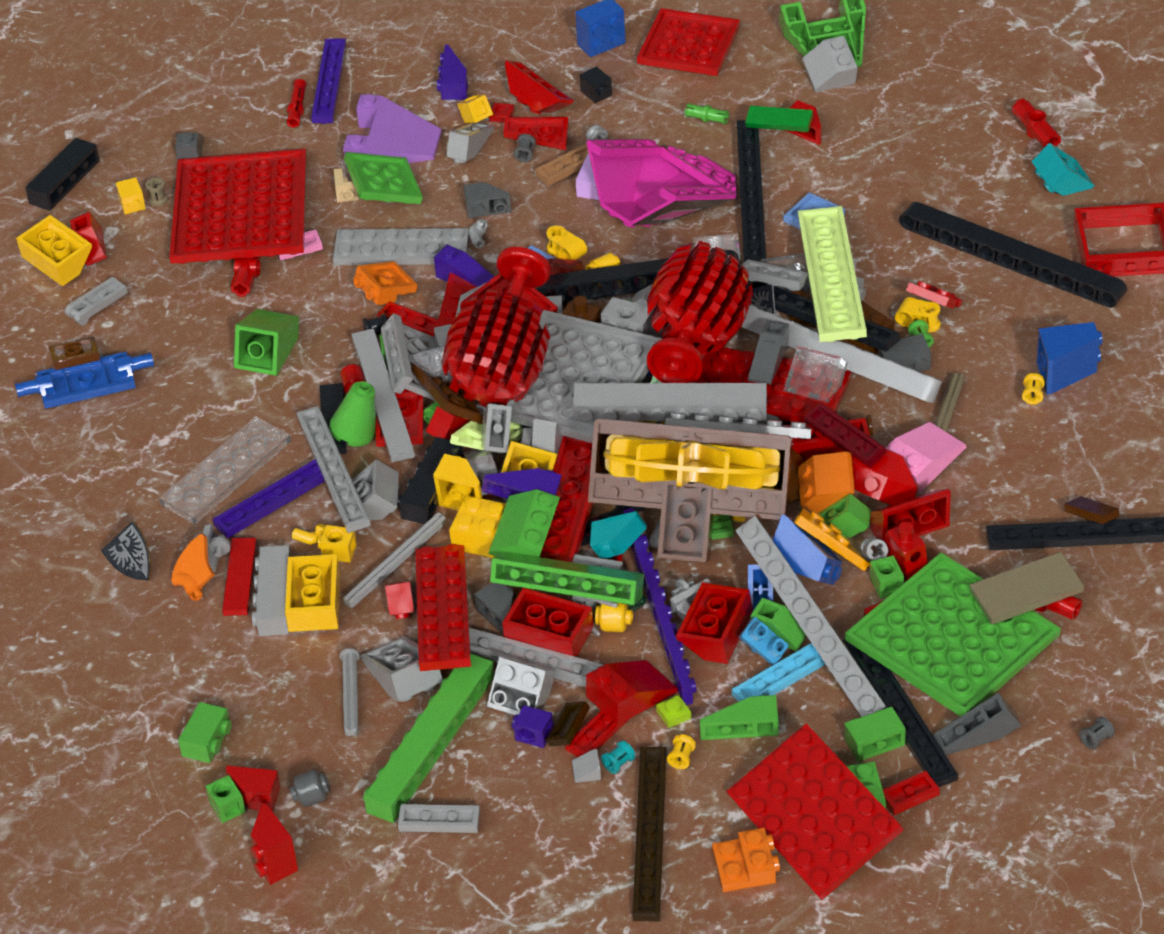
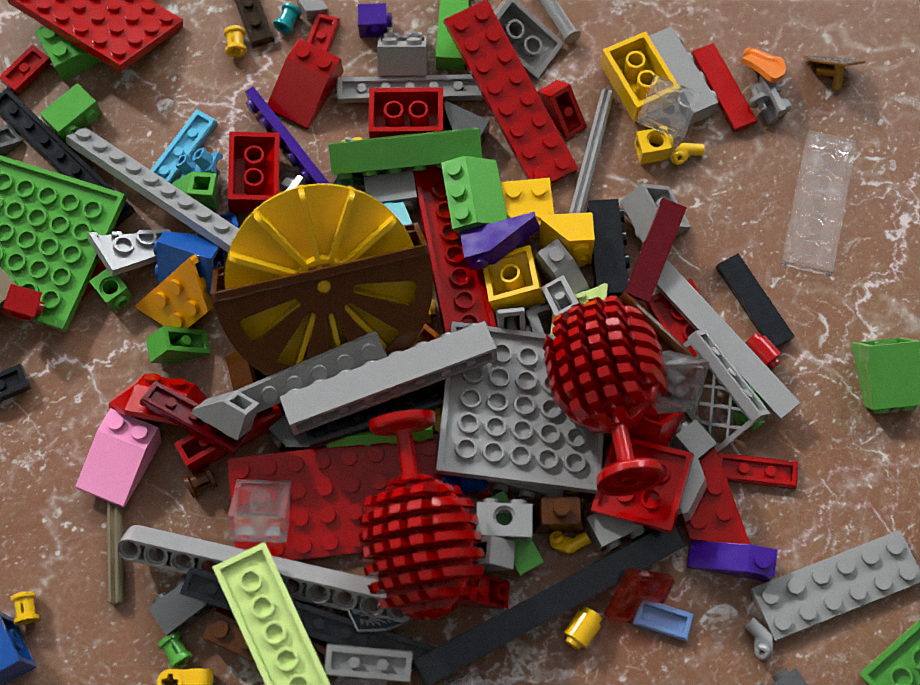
camera: 155 degrees right, 25 degrees up
(269, 499) = (745, 186): dark purple plate -> none
(309, 544) = (668, 107): none -> clear plate
(333, 469) = (710, 220): light grey tile -> none
(355, 416) = (726, 289): bright green cone -> none
(375, 323) = (787, 441): black bush -> none
(383, 281) = (817, 509): orange plate -> none
(395, 445) = (655, 250): none -> dark red tile
(564, 244) = (639, 647): yellow piece -> none
(567, 723) = (345, 36): dark brown tile -> none
(673, 711) = (261, 82): lime plate -> none
(747, 718) = (191, 89): bright green slope -> none
(769, 352) = (323, 523): dark grey slope -> none
(814, 414) = (229, 413): none -> light grey slope
(825, 480) = (201, 368): orange slope -> none
(853, 590) = (125, 251): none -> light grey wing
(867, 552) = (132, 314): light grey bush -> none
(907, 549) = (96, 316): red torso -> none
(925, 512) = (105, 366): red slope -> none
(970, 564) = (22, 303): none -> red brick

